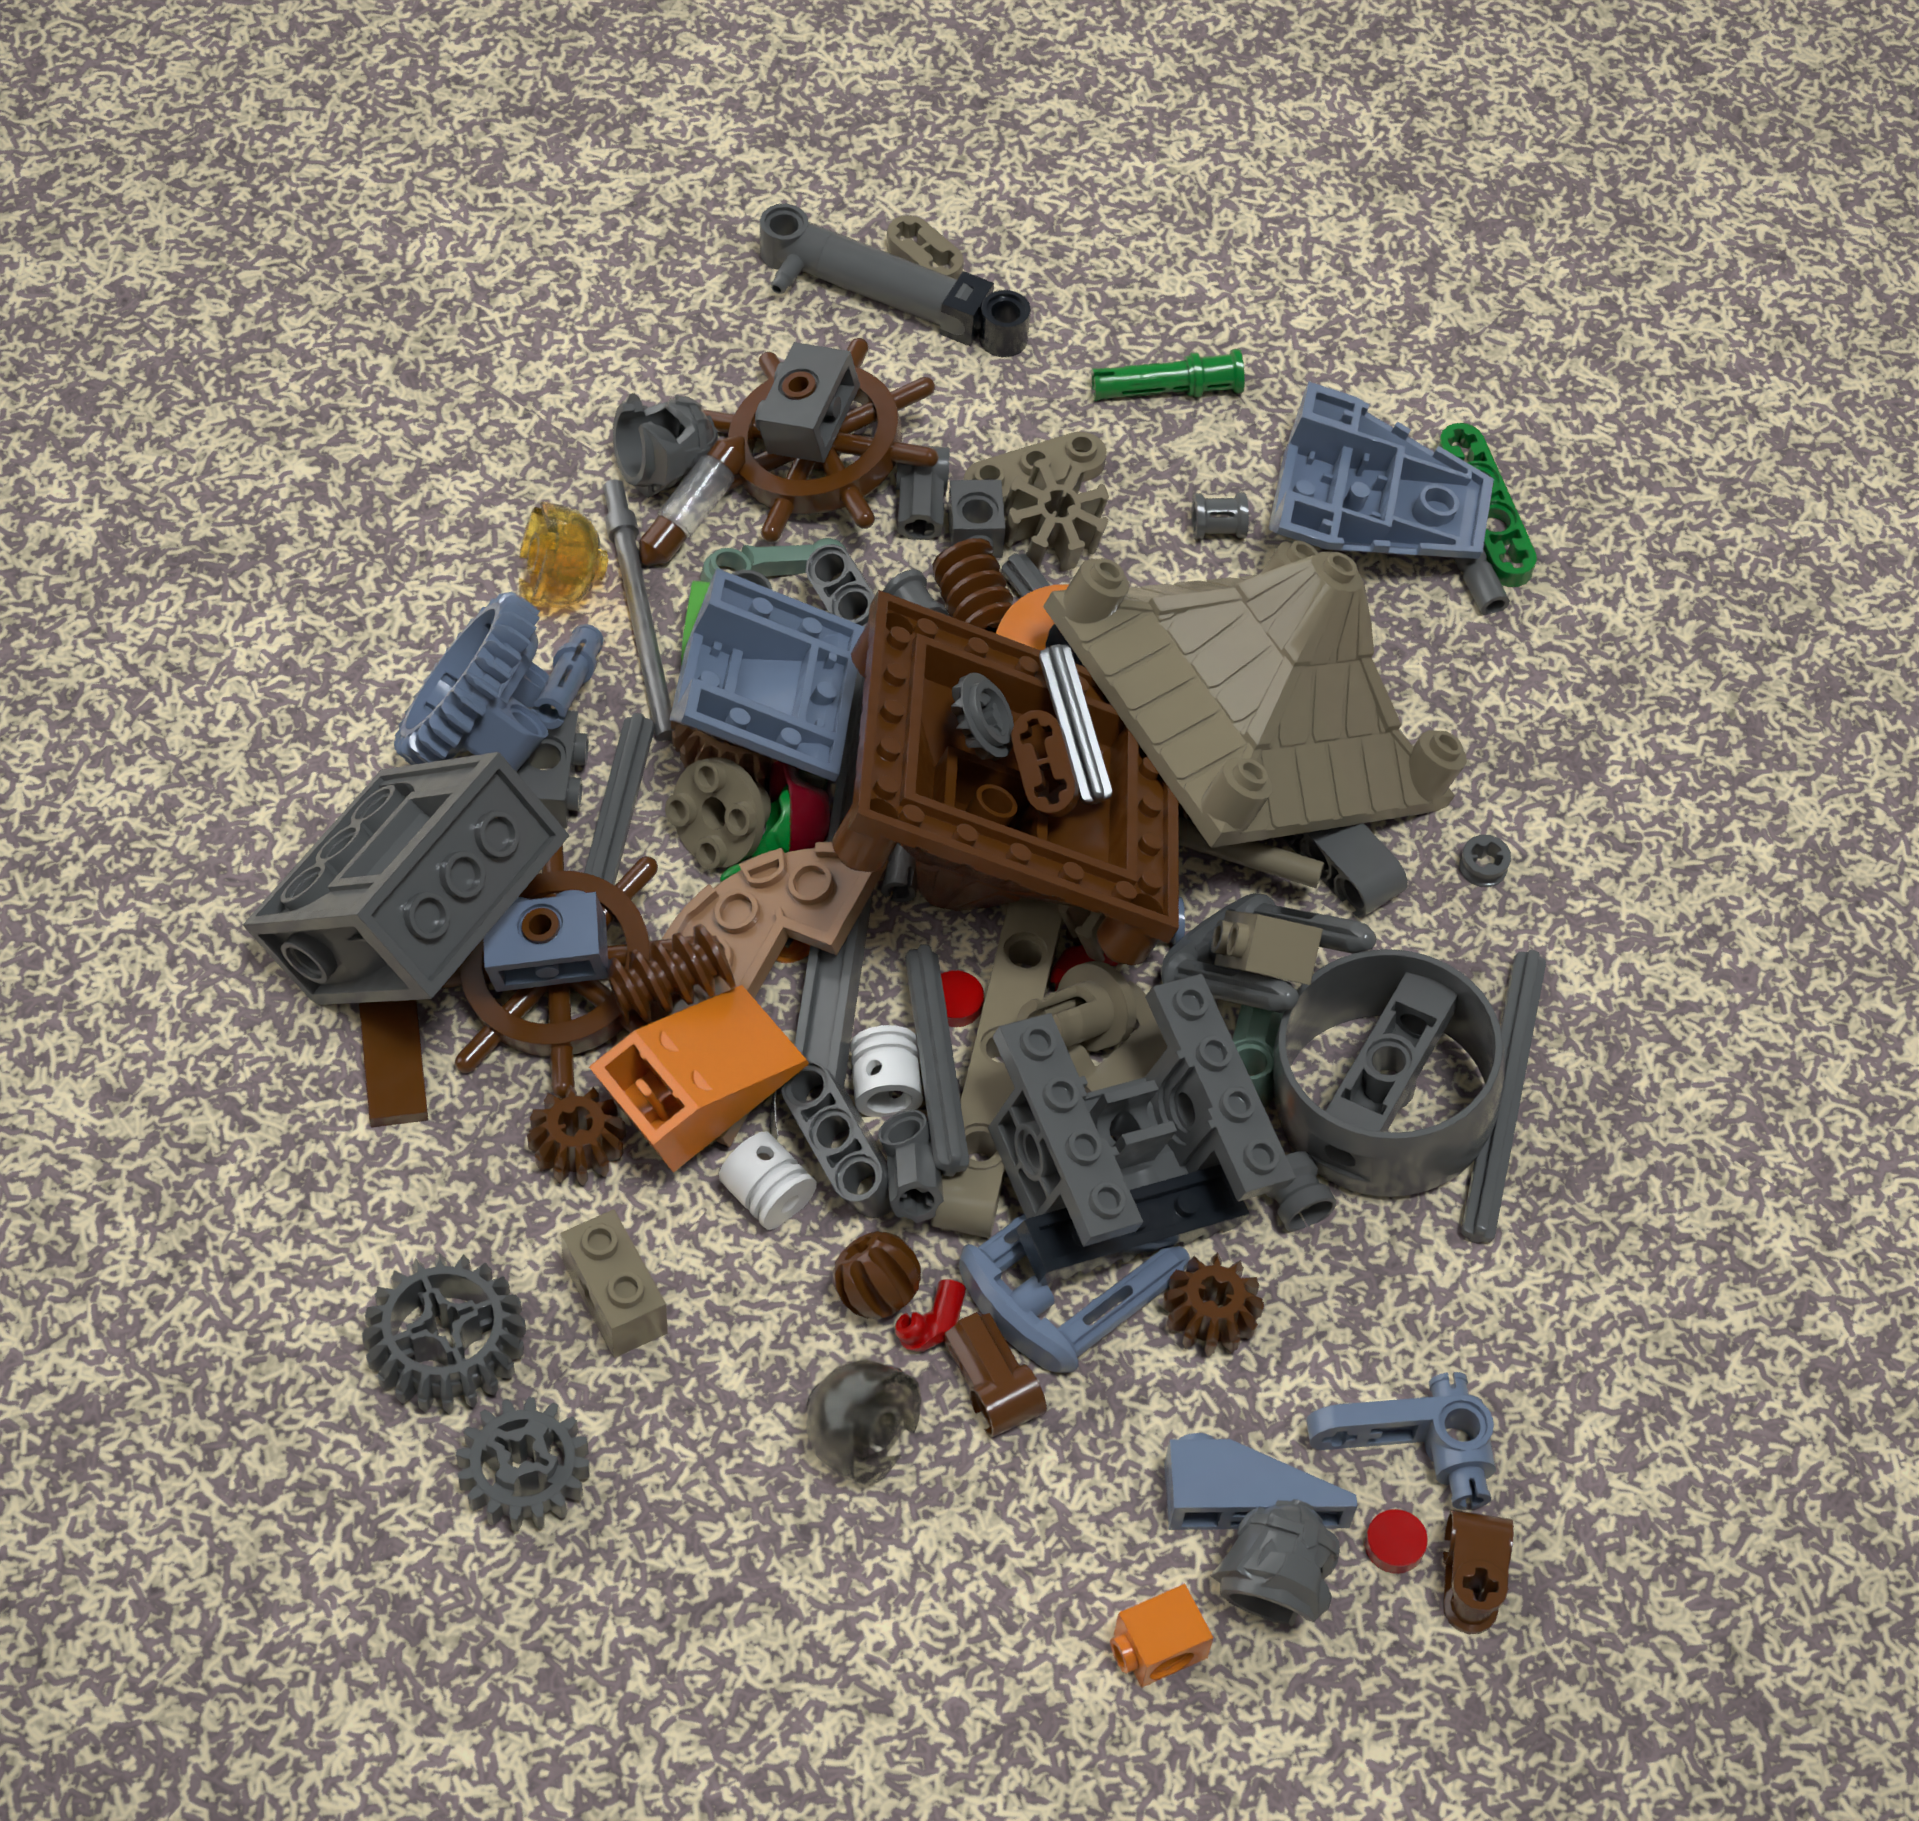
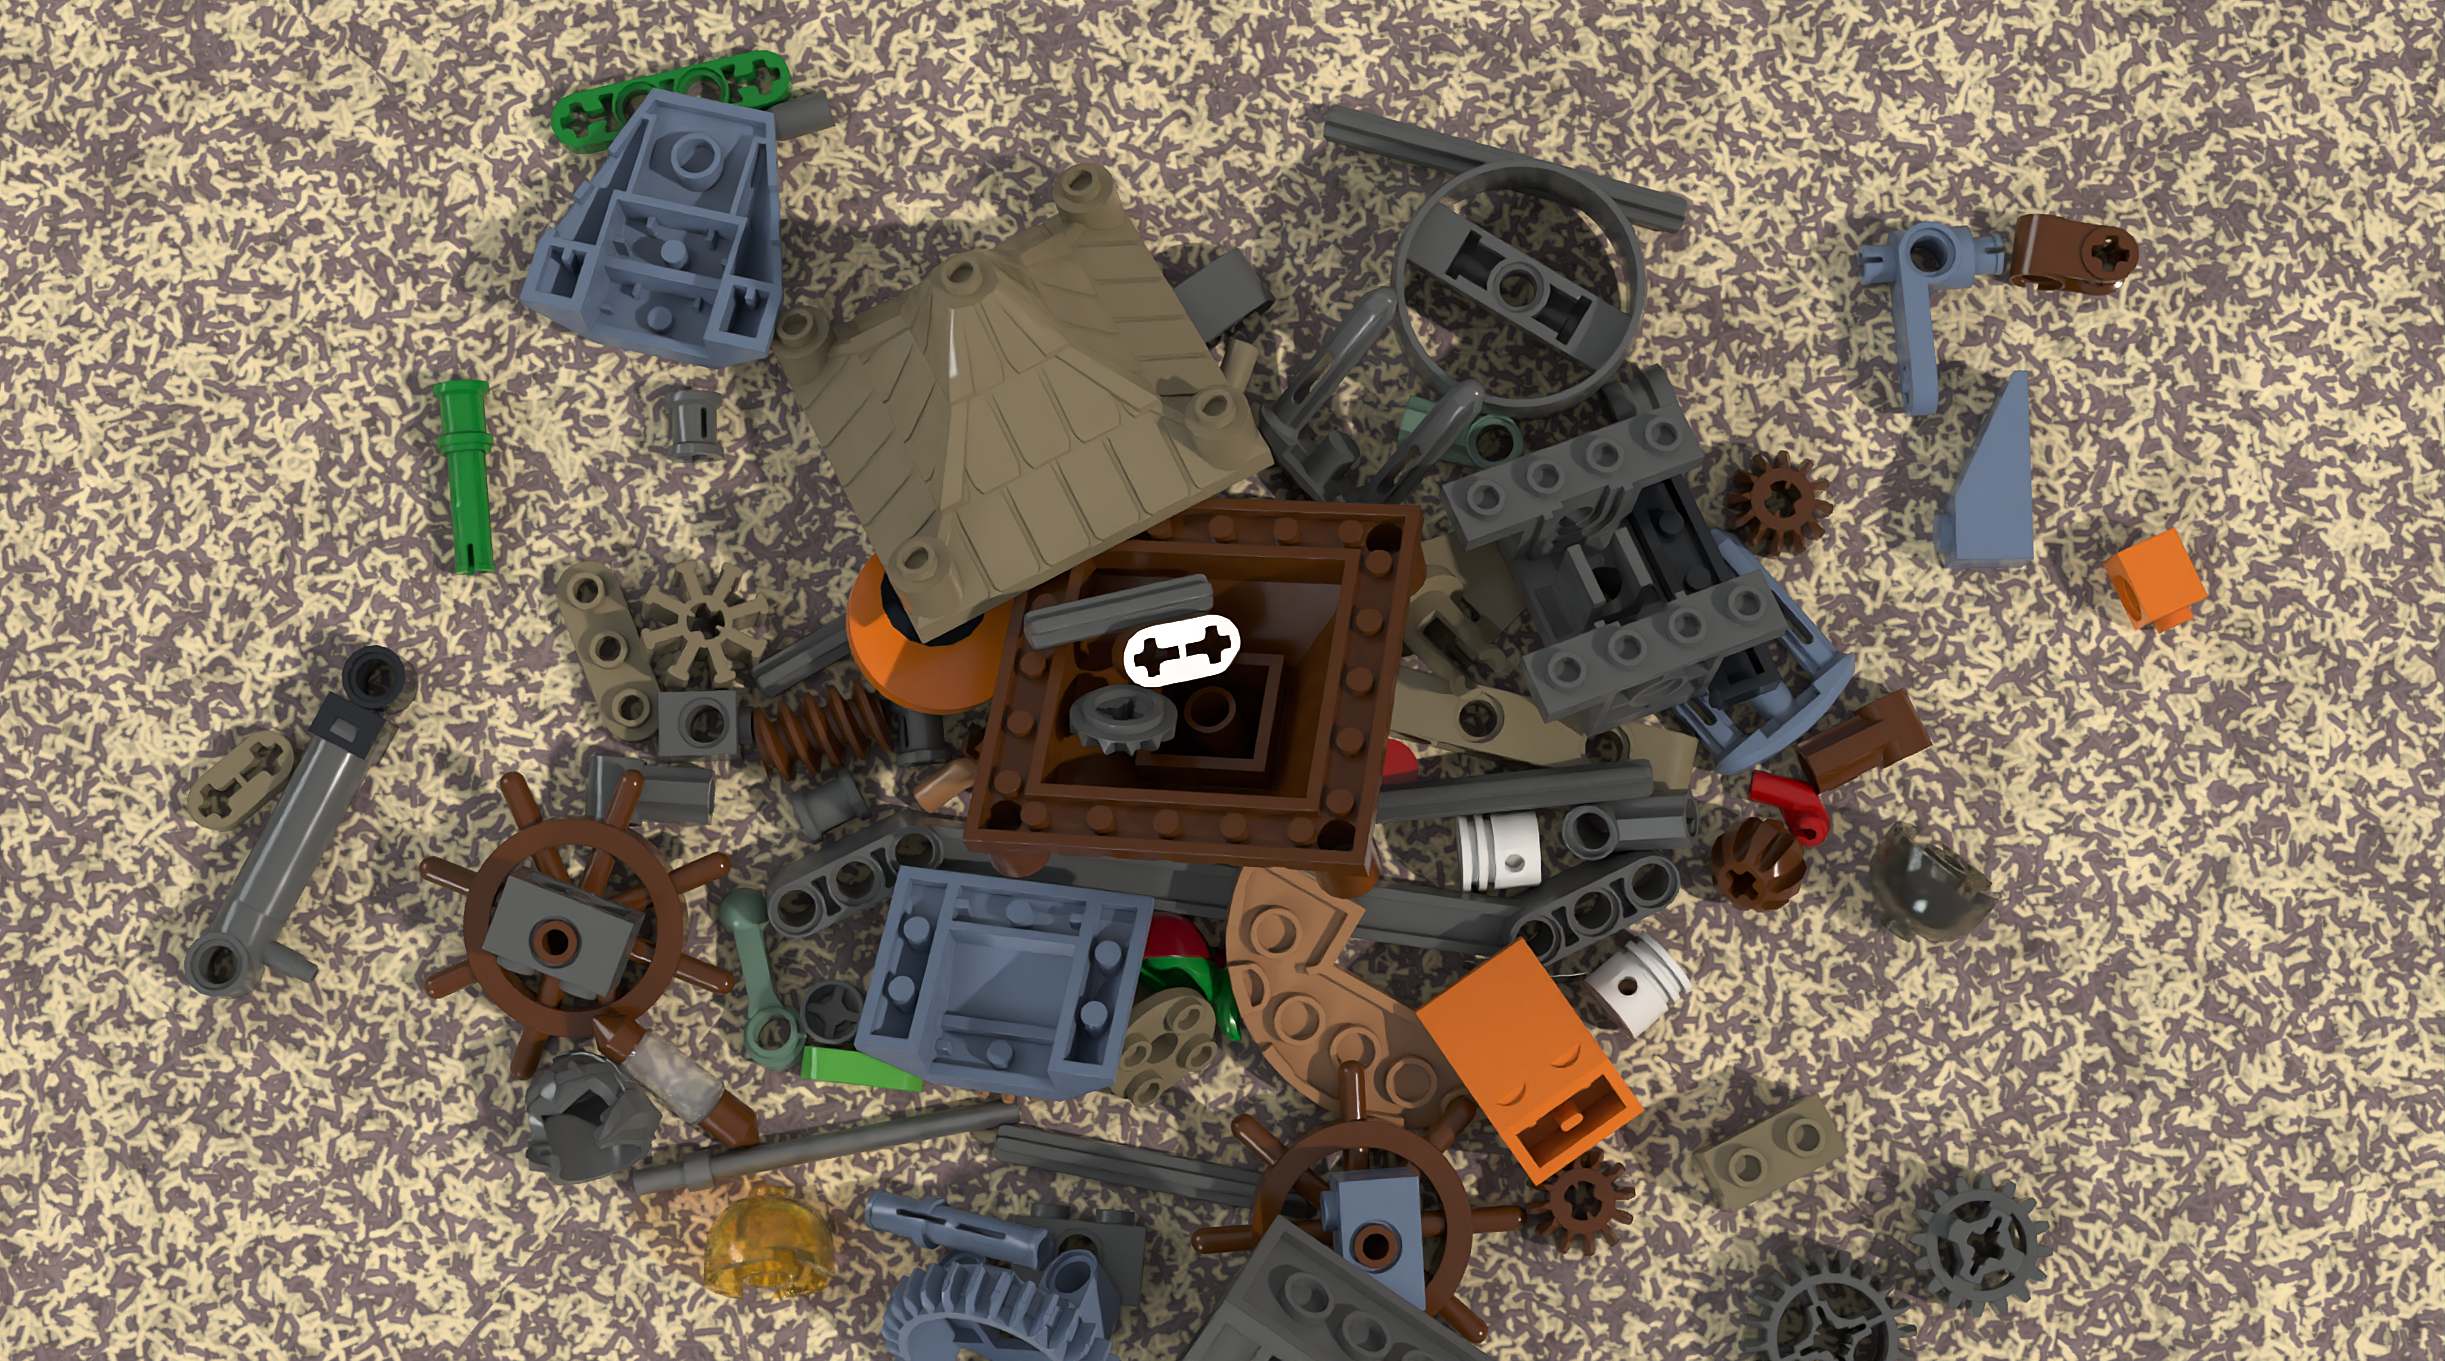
camera: 85 degrees left, 25 degrees up
(668, 973) = (1419, 1094): reddish brown piece -> none
(1266, 946) = (1390, 409): dark tan brick -> none
(1280, 1563) = (2098, 454): dark grey helmet -> none
(1396, 1541) = (2034, 336): red tile -> none
(1492, 873) = (1216, 157): dark grey bush -> none

